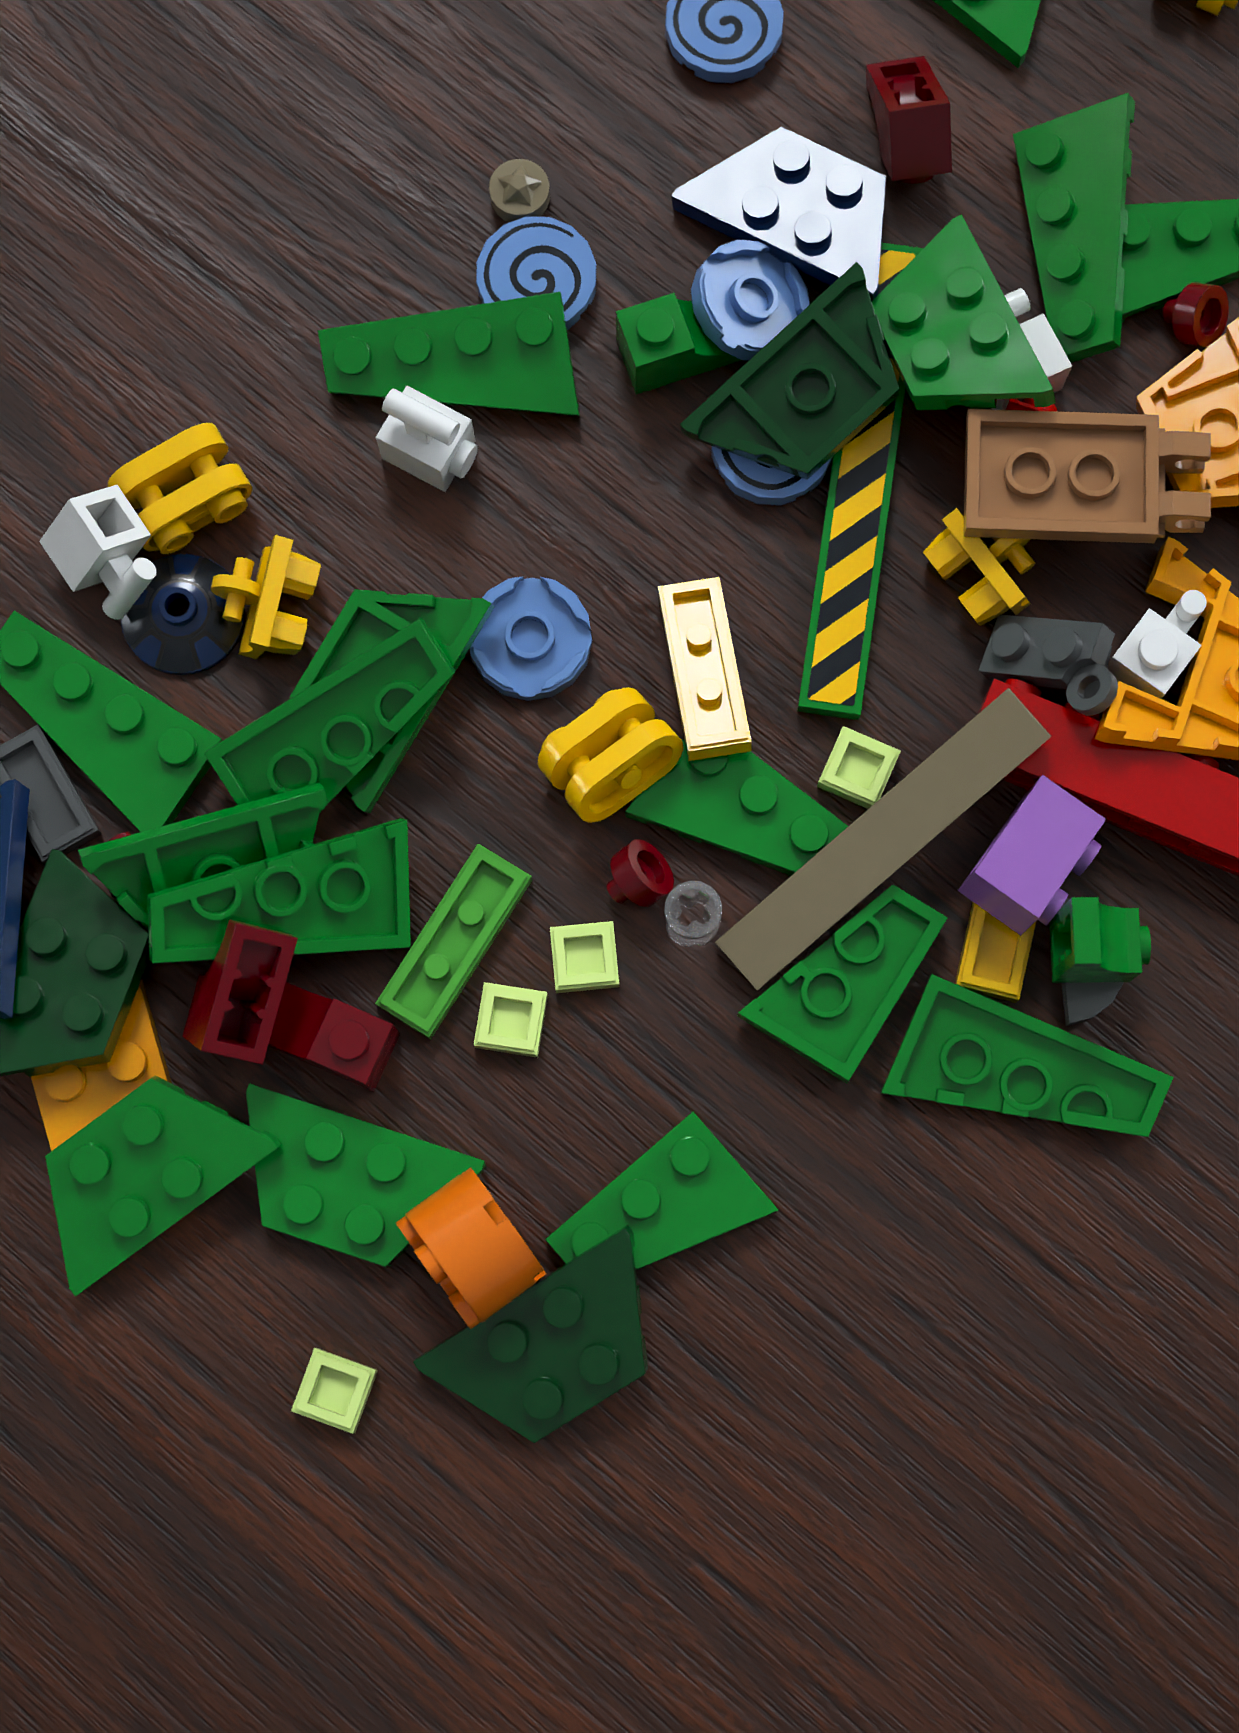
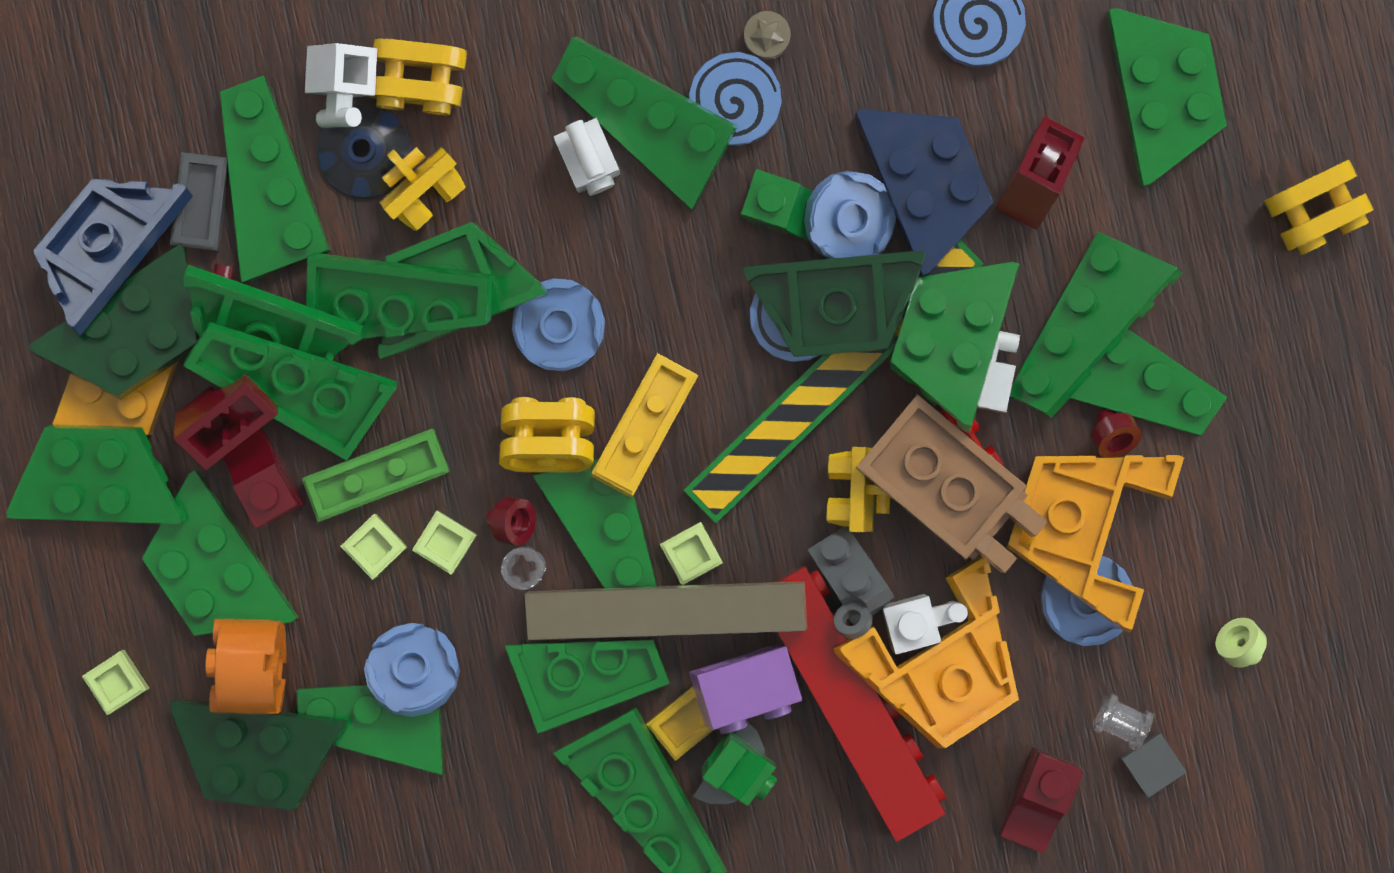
camera: 35 degrees right, 10 degrees up
(657, 1117) = (412, 670): none -> medium blue tile

